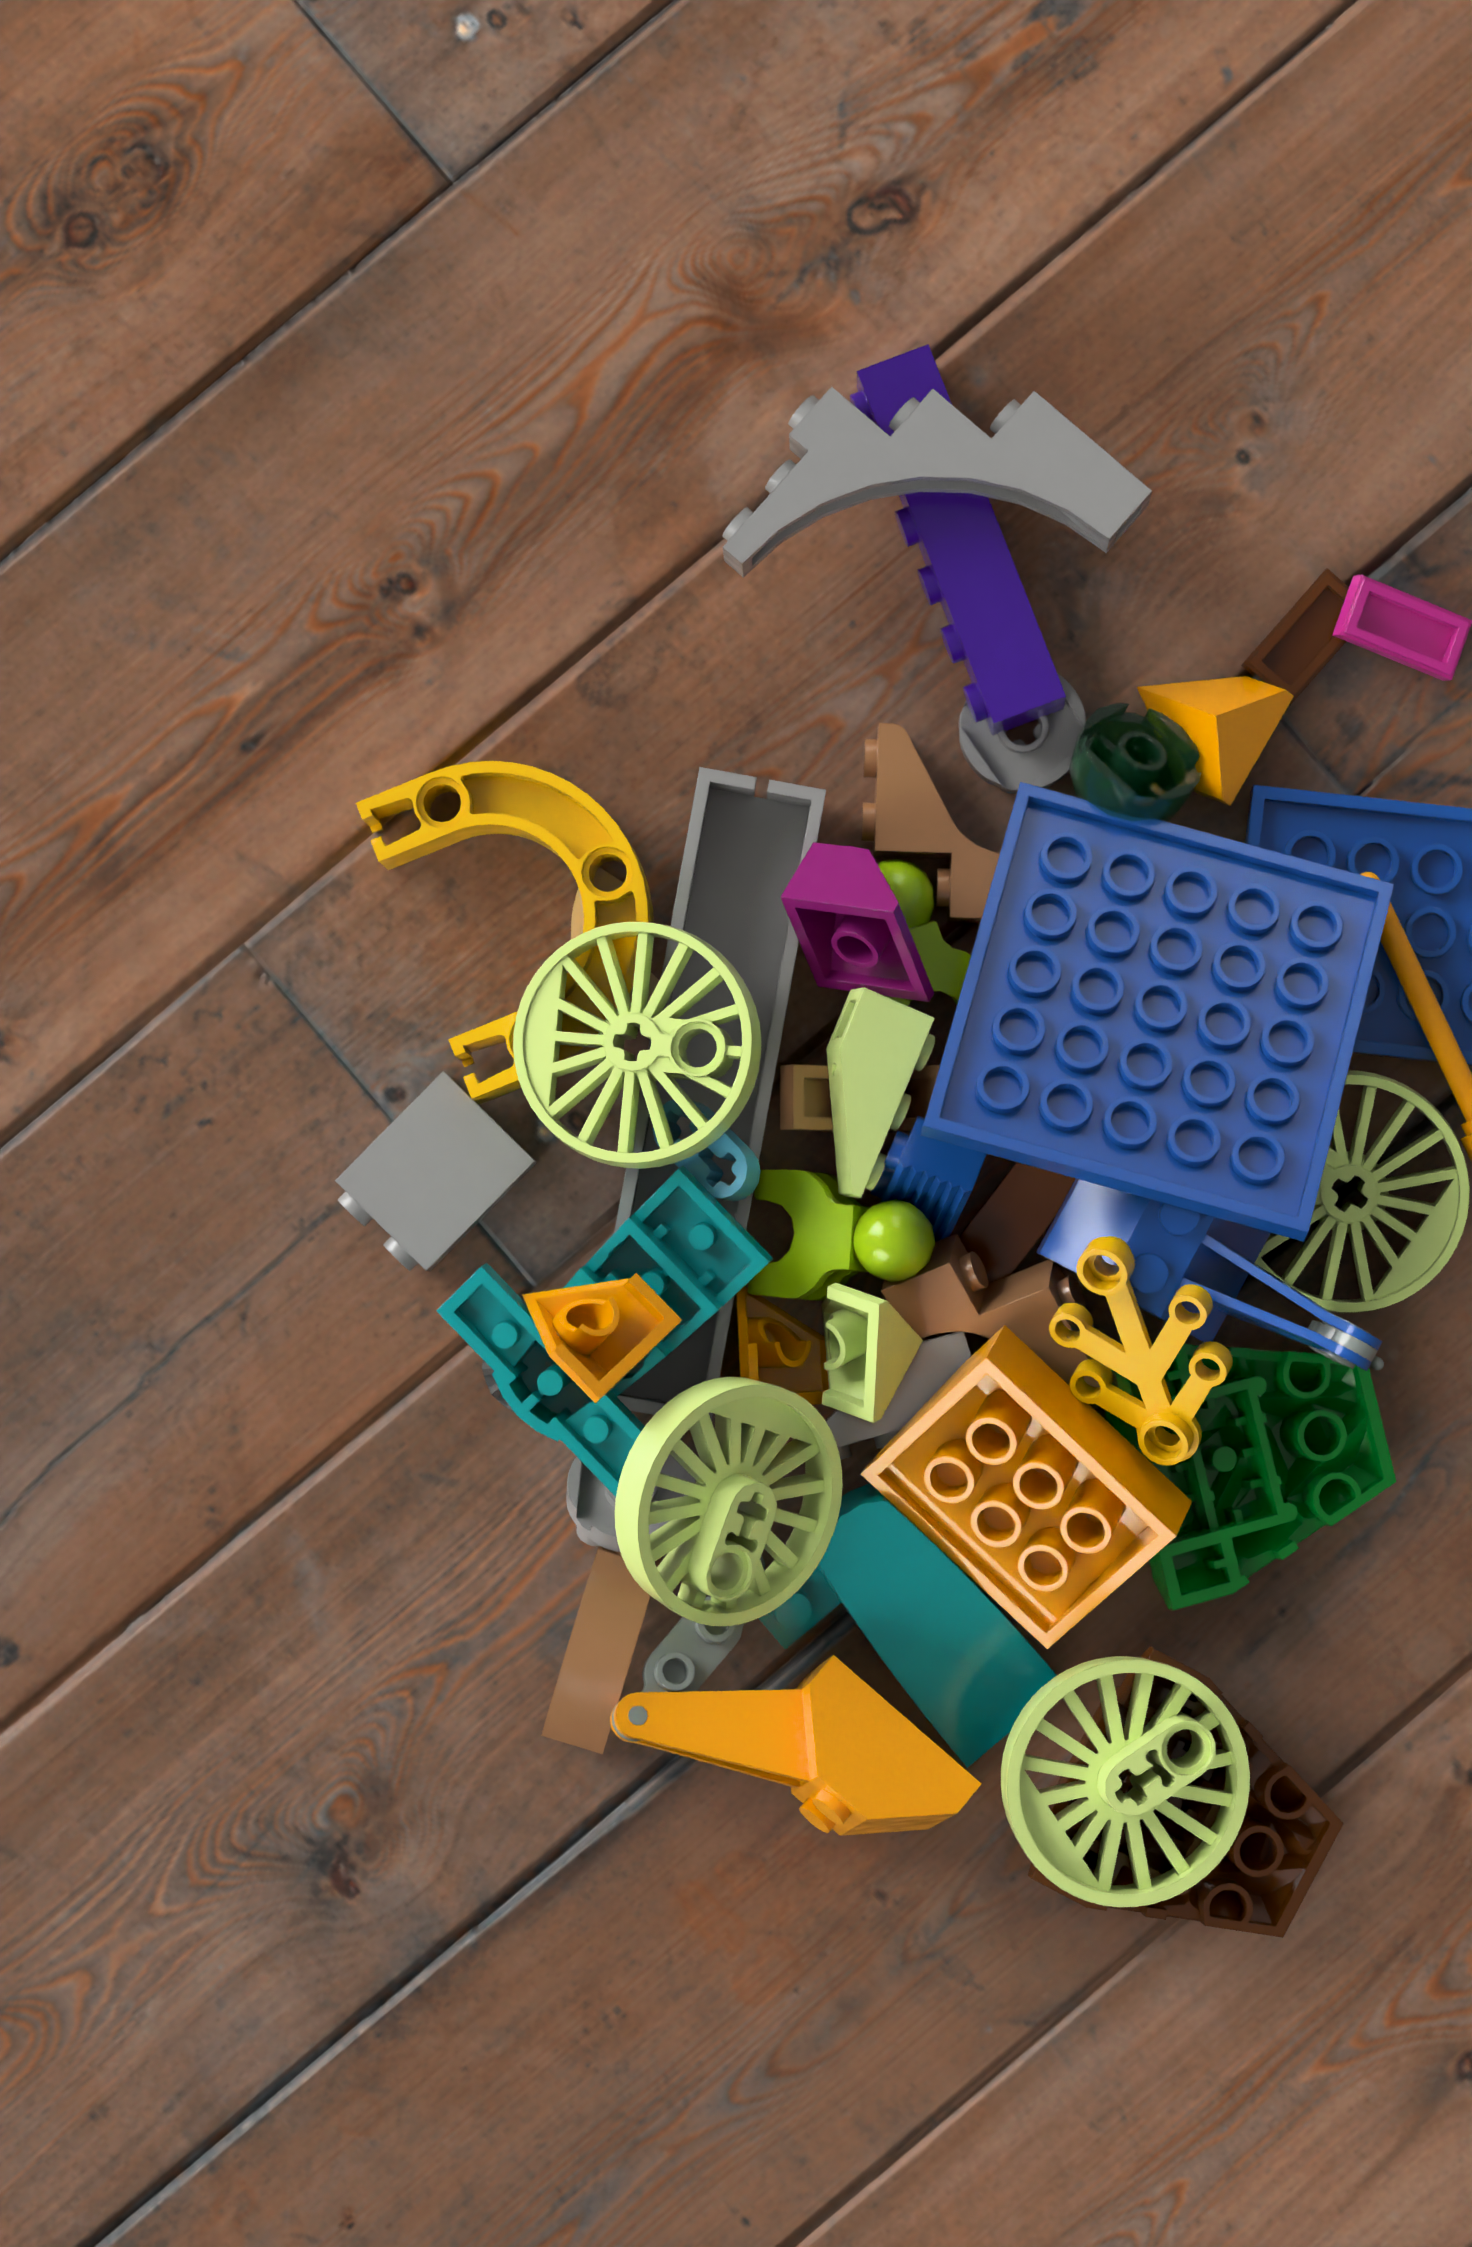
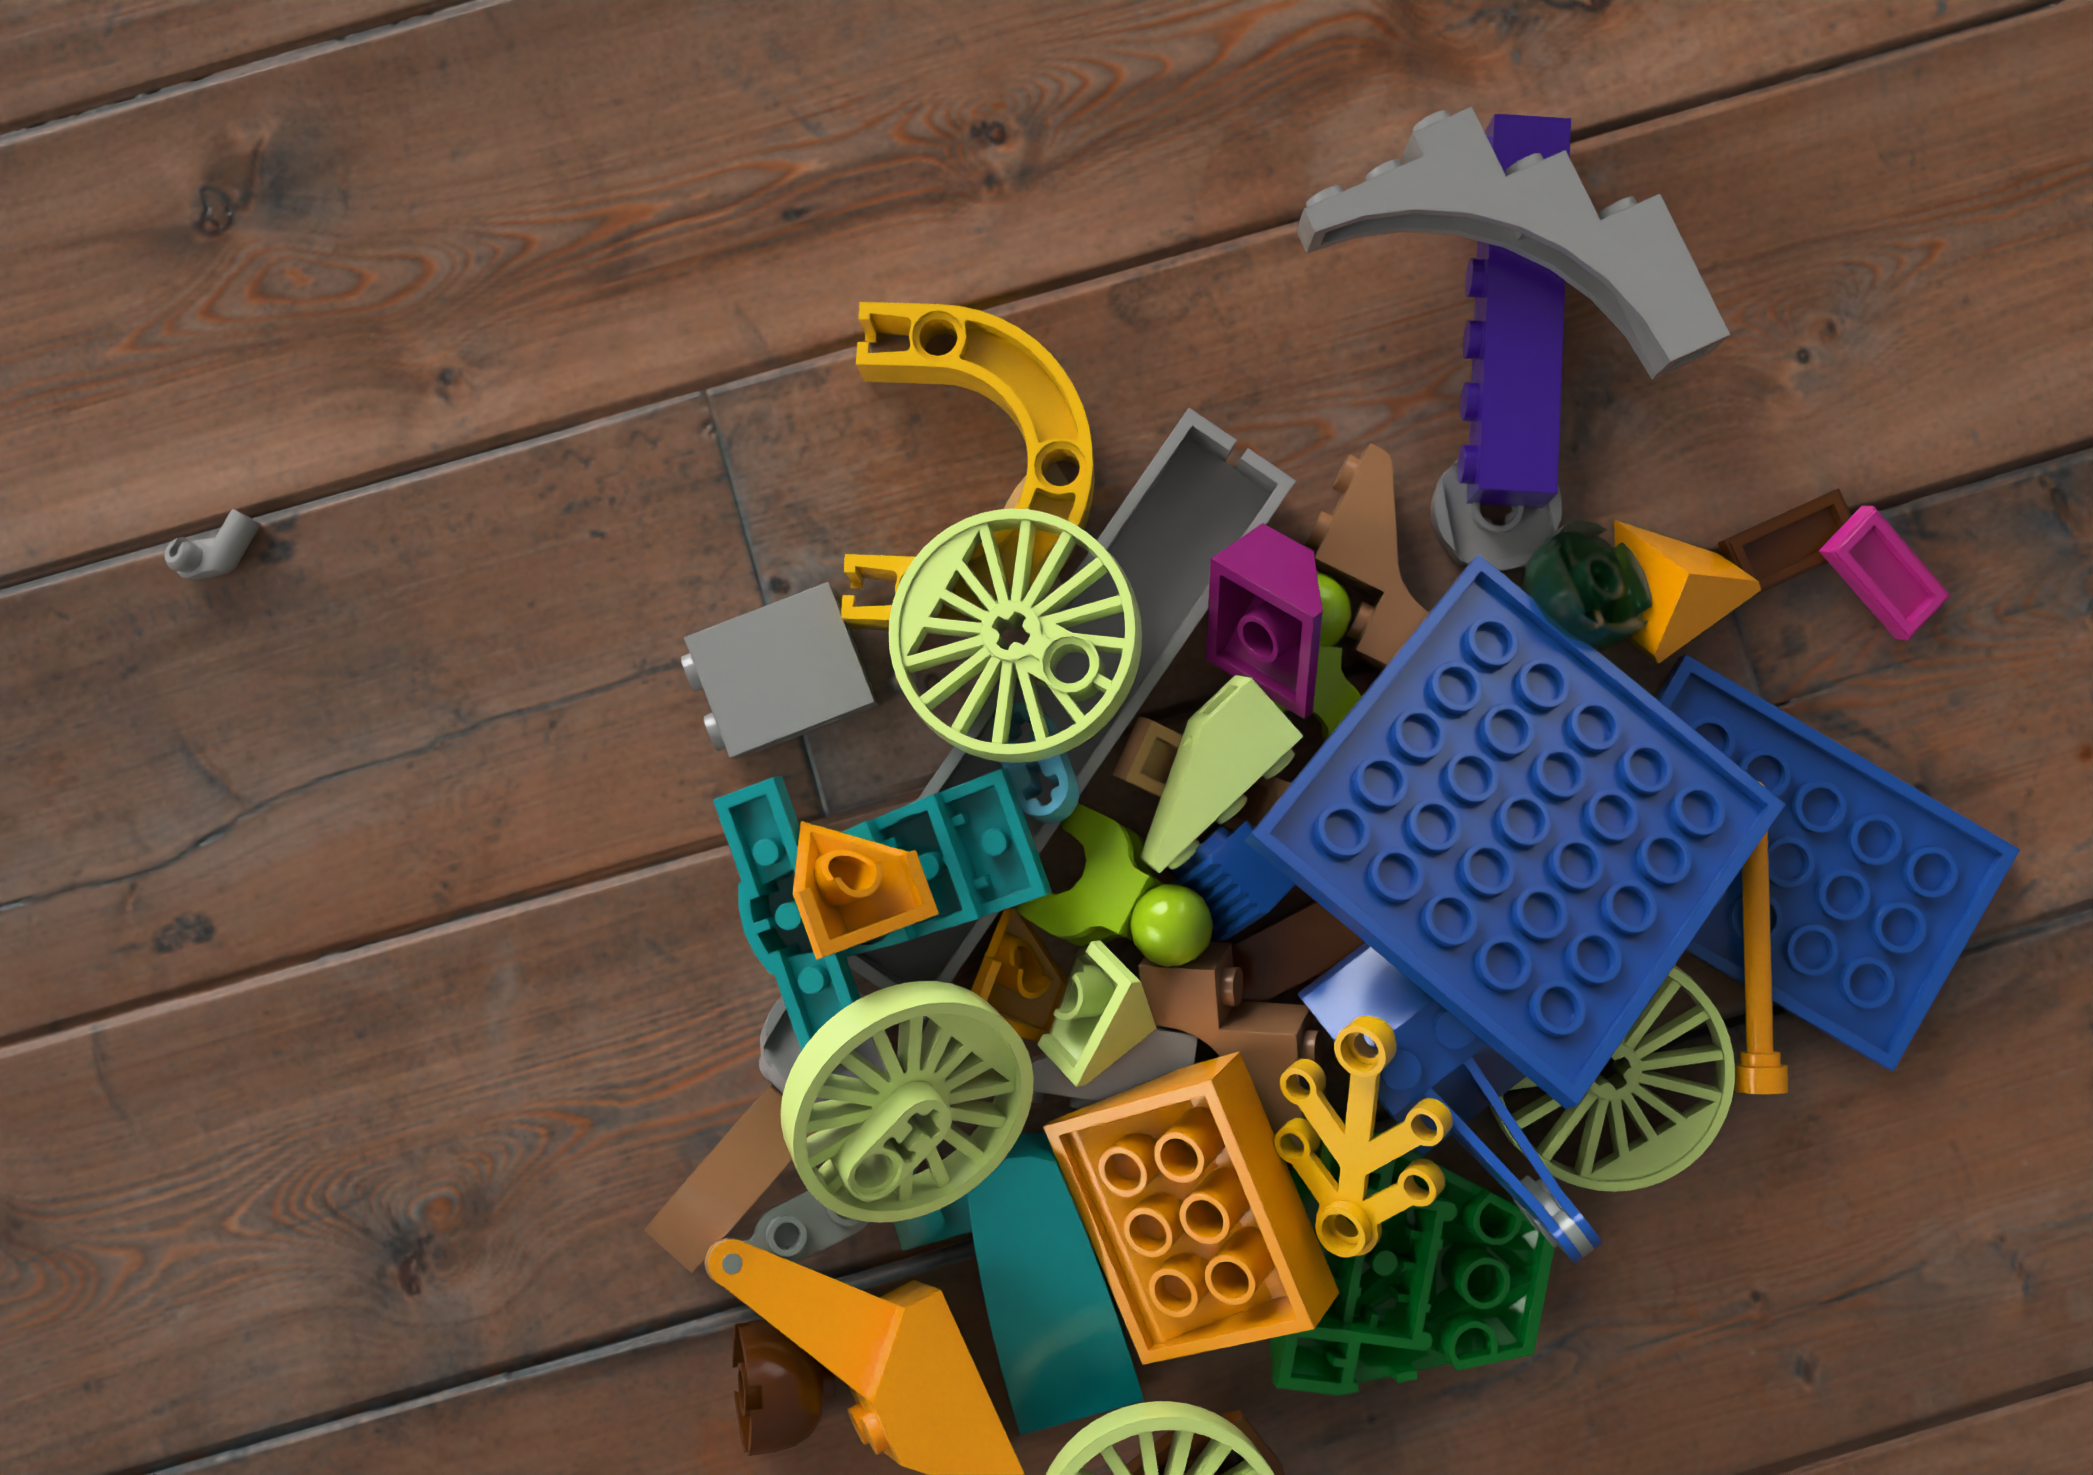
camera: 25 degrees right, 0 degrees up
(726, 1818) = (777, 1388): none -> reddish brown cylinder

